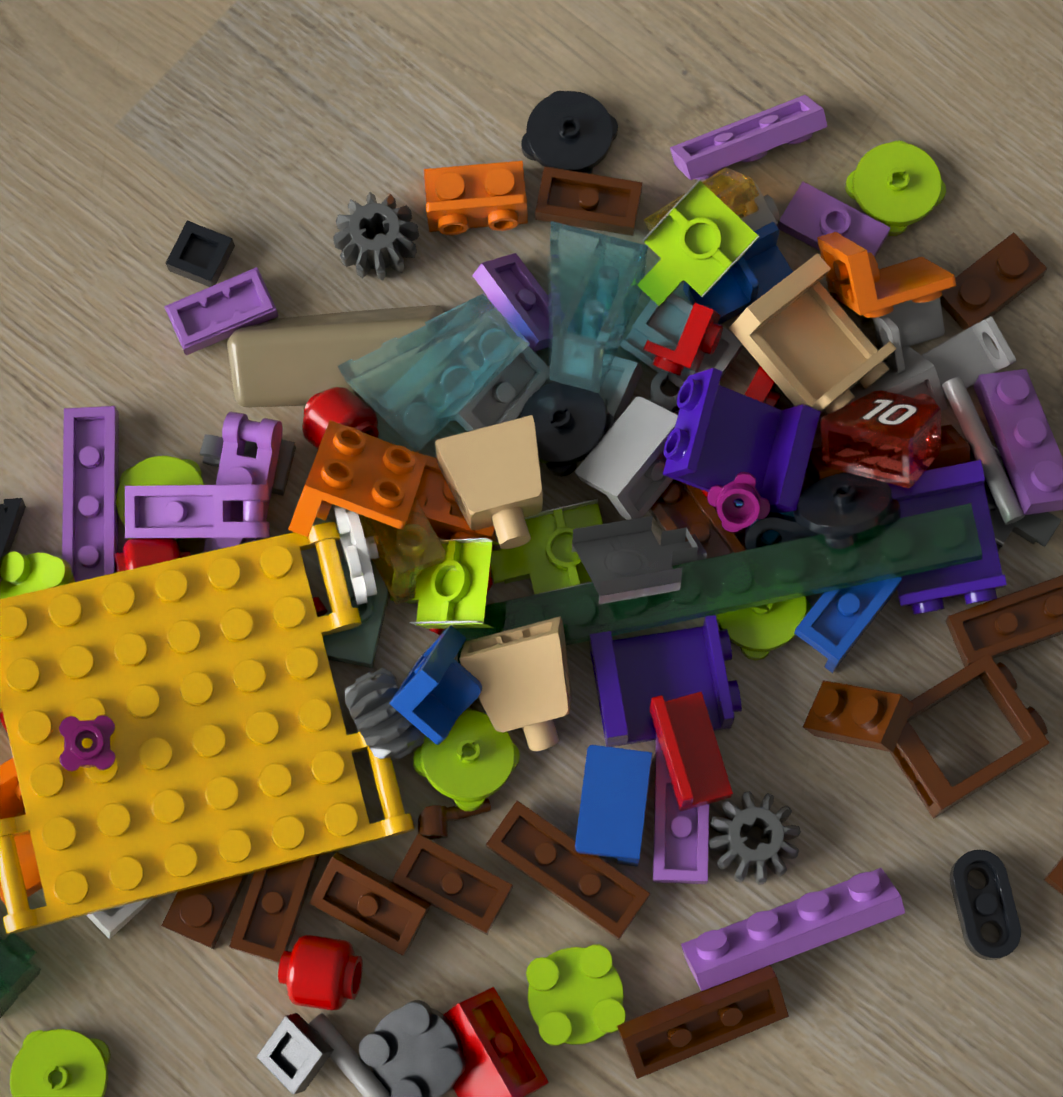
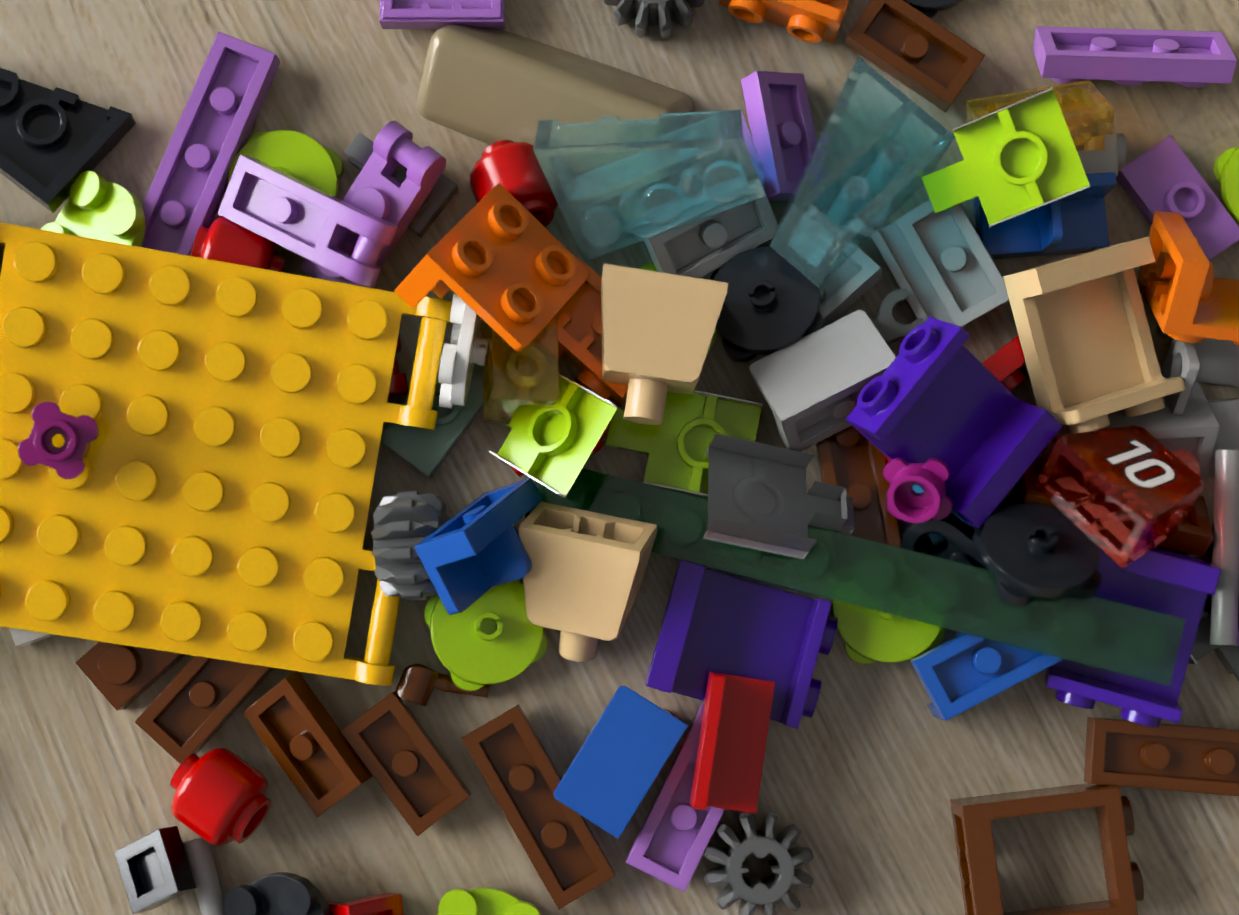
camera: 25 degrees right, 10 degrees up
(699, 337) = (964, 271): red bracket -> none
(858, 715) = (938, 789): reddish brown plate -> none

